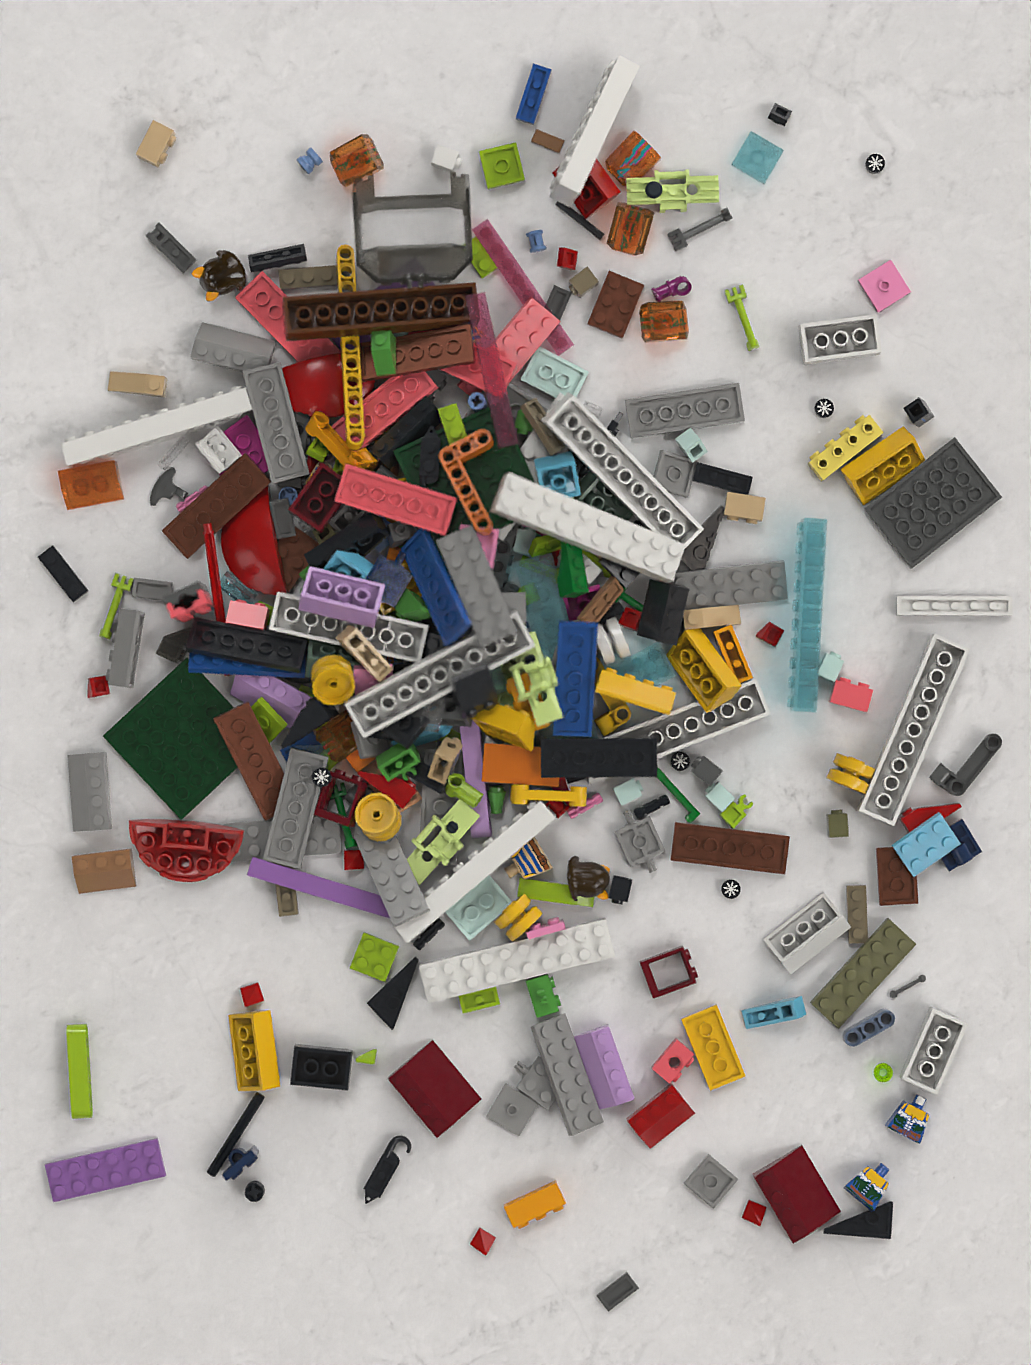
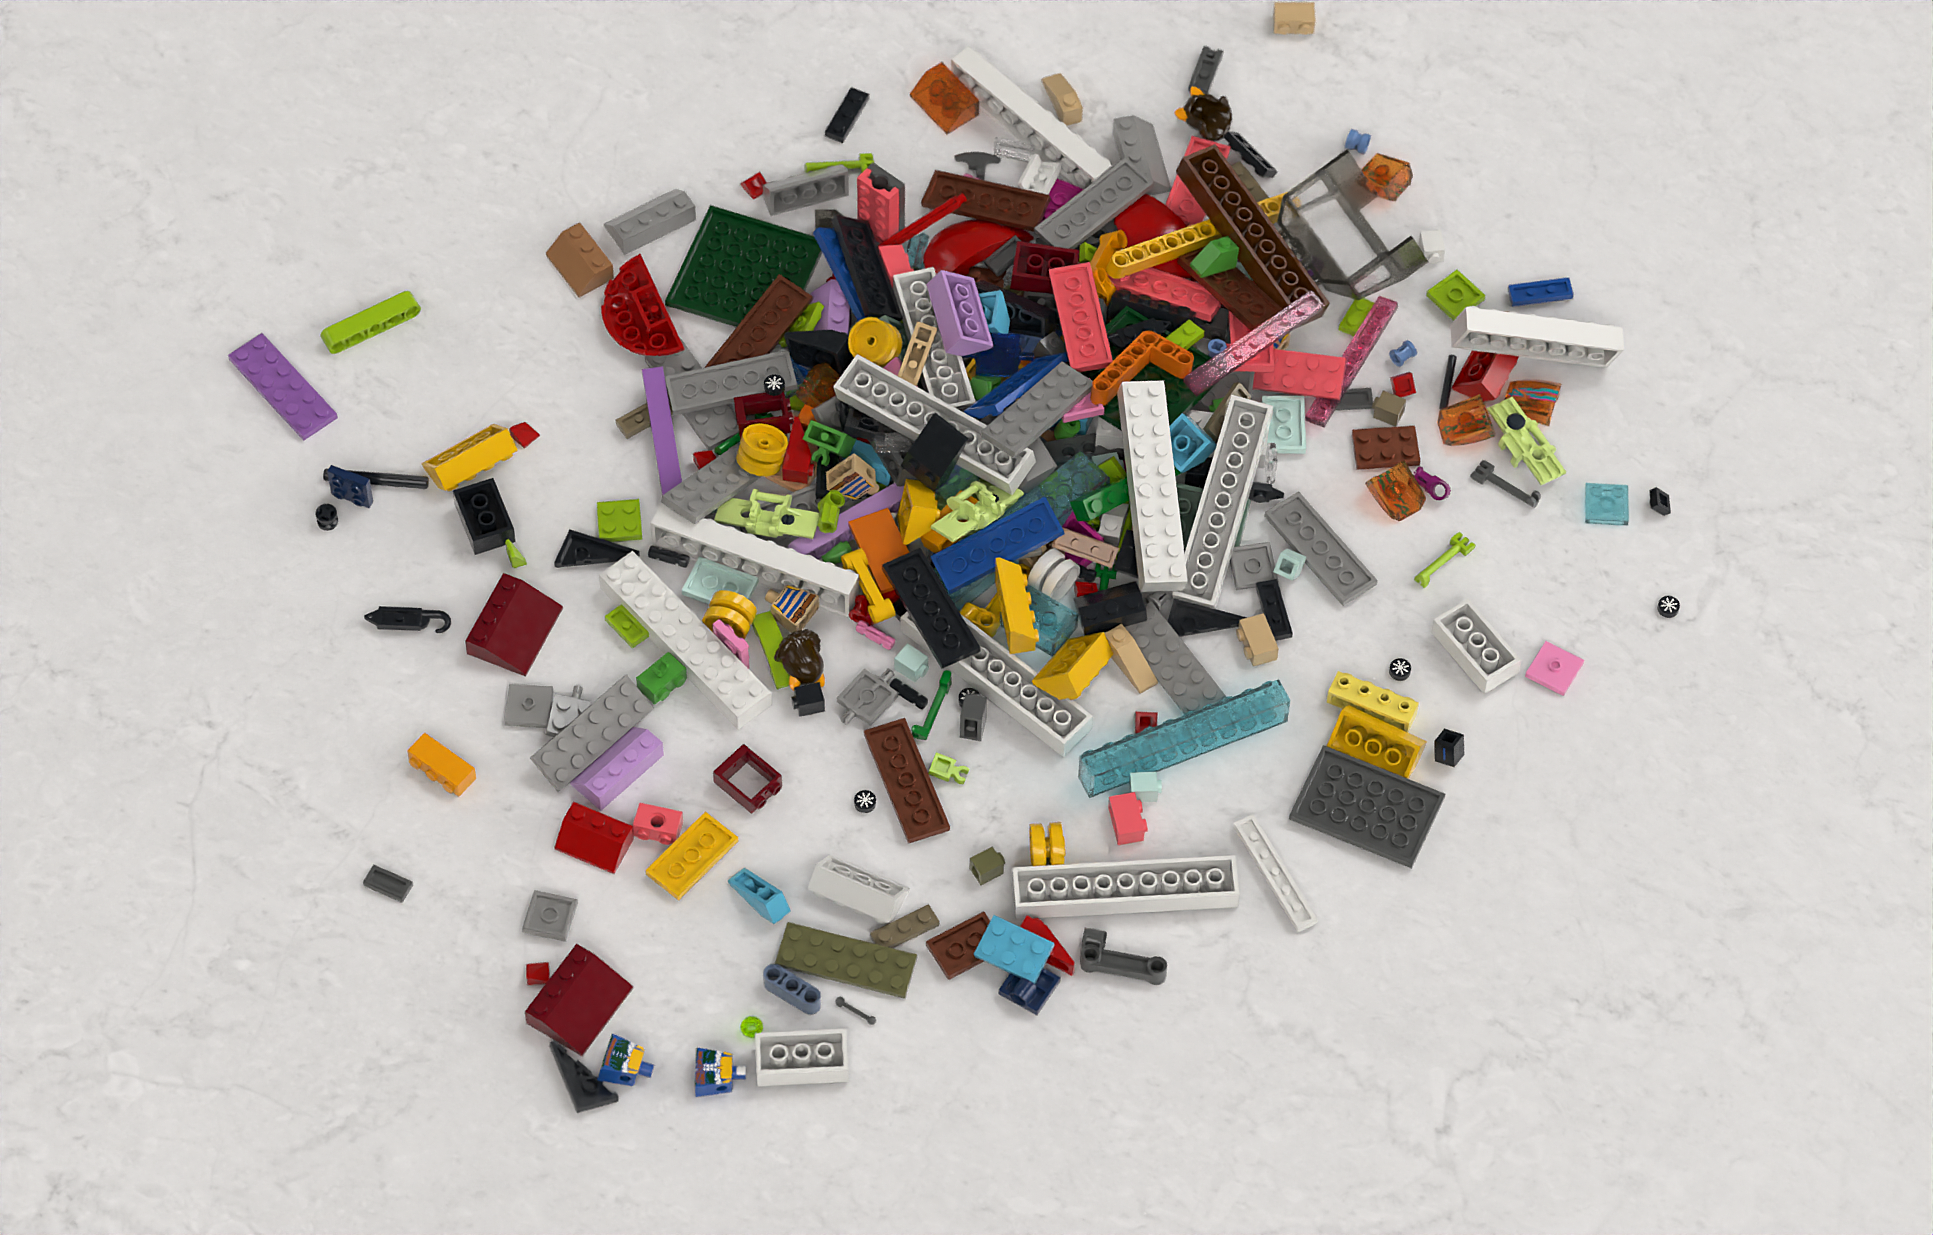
camera: 60 degrees right, 30 degrees down
(482, 1241) = (378, 739): red slope -> none
(719, 796) = (954, 744): light aqua brick -> none
(732, 653) = (1106, 688): light orange brick -> none

